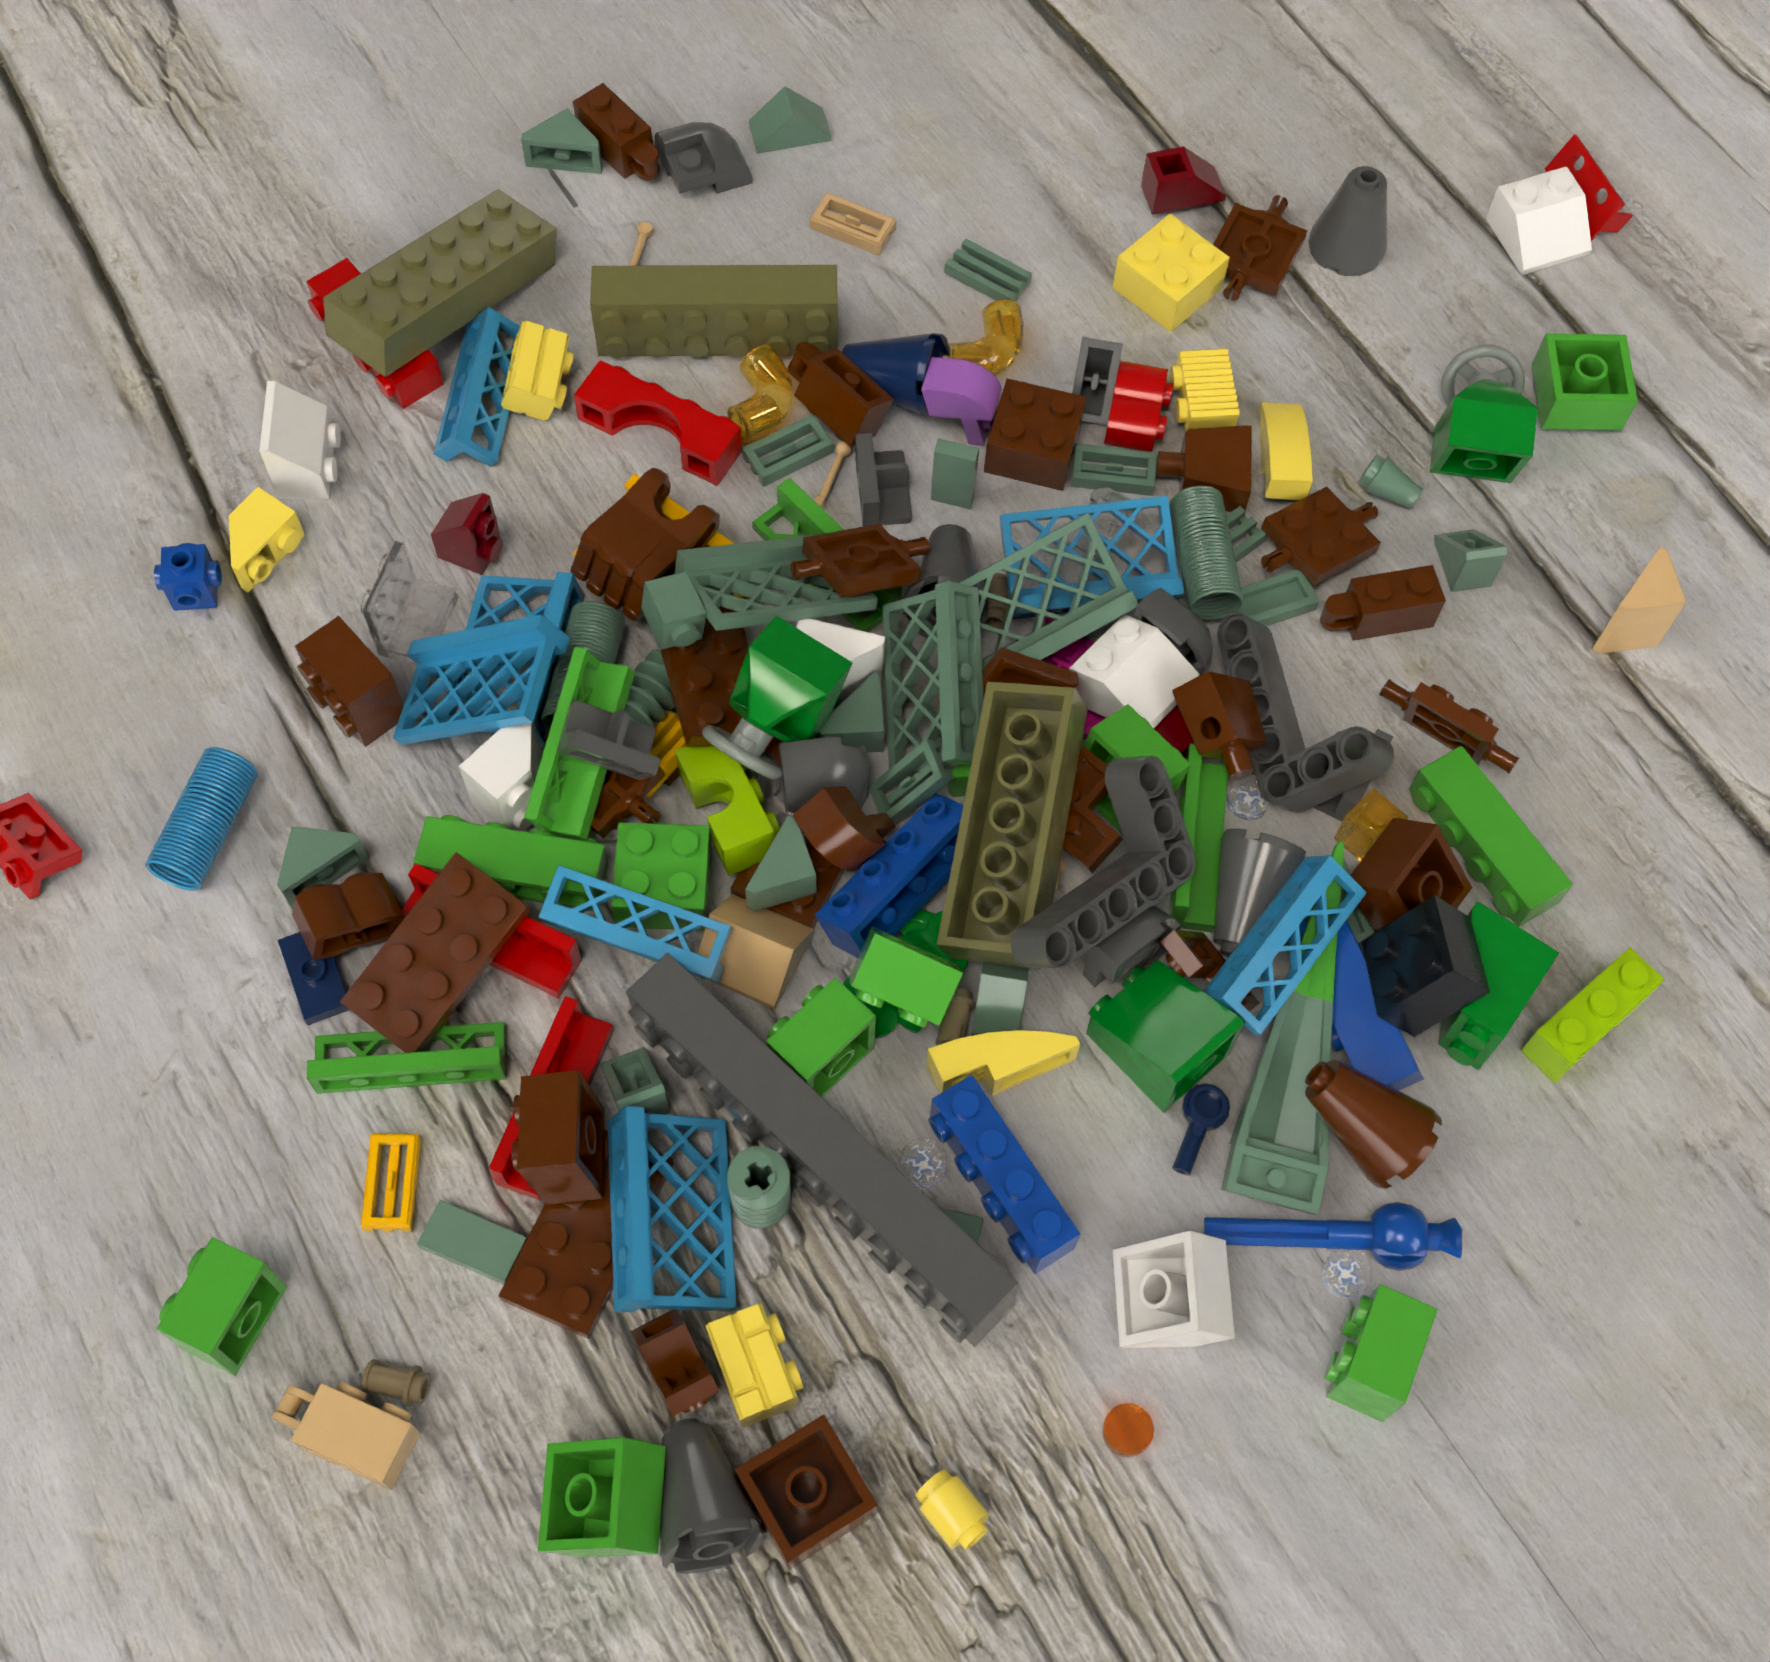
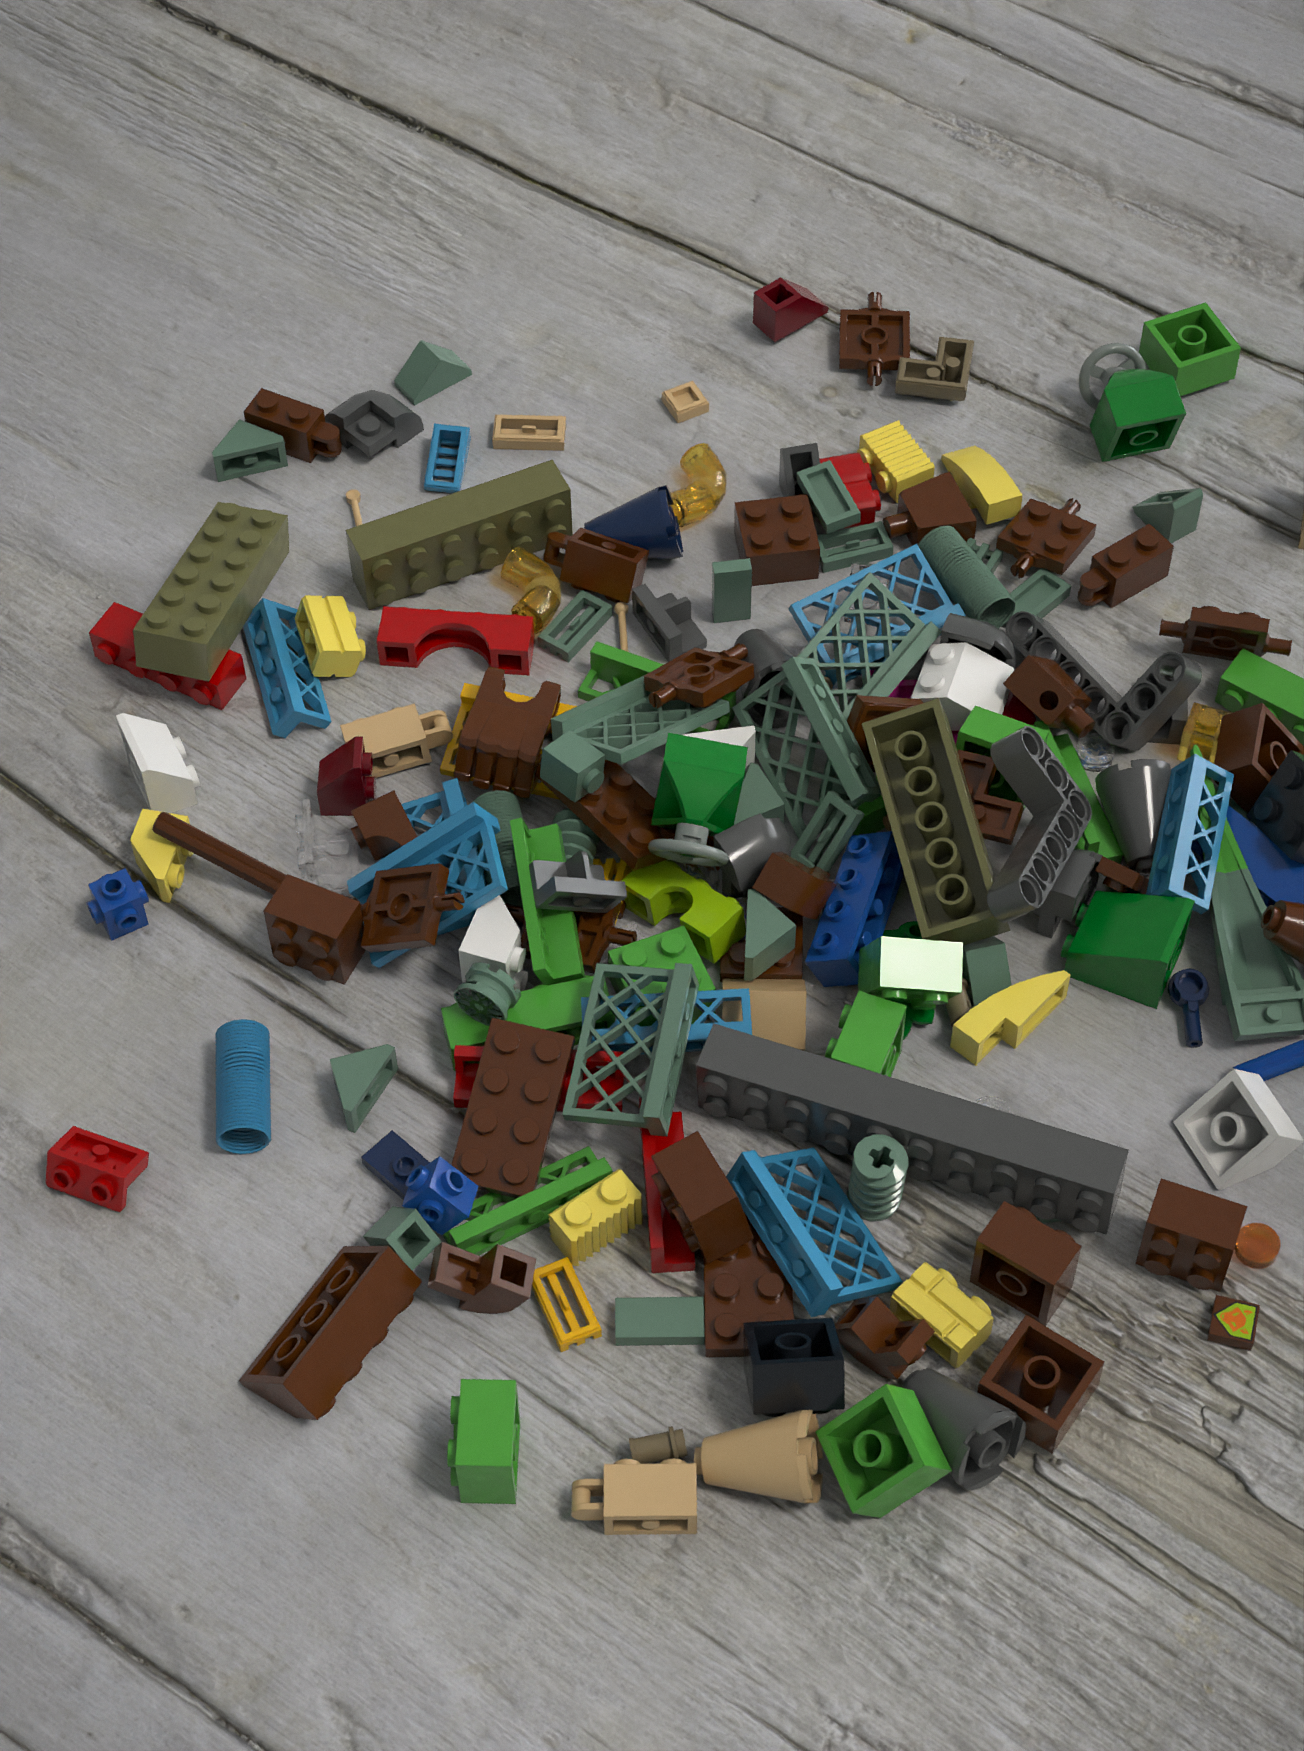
camera: 20 degrees left, 10 degrees down
(148, 1117) = (332, 1331): none -> reddish brown slope
(261, 1048) = (405, 1234): none -> sand green brick
(308, 566) = (218, 852): none -> reddish brown axle
(313, 1124) = (483, 1284): none -> reddish brown brick
(315, 1019) = (440, 1194): none -> blue brick
(346, 915) = (414, 1111): reddish brown brick -> none
(437, 697) = (407, 907): none -> reddish brown plate
(462, 1104) = (596, 1217): none -> light yellow brick
(466, 824) = (486, 993): none -> sand green wheel
(477, 595) = (382, 826): none -> reddish brown arch
(489, 1450) = (766, 1458): none -> tan cone
(541, 506) = (400, 737): none -> tan brick
(561, 1361) = (793, 1366): none -> black brick
(601, 970) = (667, 1041): none -> sand green fence
(635, 1082) = (731, 1139): sand green slope -> none
(758, 196) = (453, 436): none -> dark azure slope
(861, 1349) = (1025, 1262): none -> reddish brown brick
(953, 1510) = (1157, 1354): light yellow brick -> none
(964, 392) = (706, 524): medium lavender brick -> none
(991, 268) = (667, 431): sand green tile -> none
(1003, 1175) = (1058, 1092): blue brick -> none
(1027, 246) = (685, 401): none -> tan tile
(1049, 1397) = (1190, 1235): none -> reddish brown brick
(1055, 1507) = (1233, 1322): none -> tile
(1107, 408) = (828, 497): none -> sand green tile
(1170, 272) = (817, 380): light yellow brick -> none
(1302, 317) = (938, 379): none -> dark tan brick
(1353, 225) = (946, 293): dark grey cone -> none
(1389, 482) = (1076, 478): sand green cone -> none
(1541, 220) = (1089, 242): white slope -> none
(1591, 179) = (1109, 208): red piece -> none

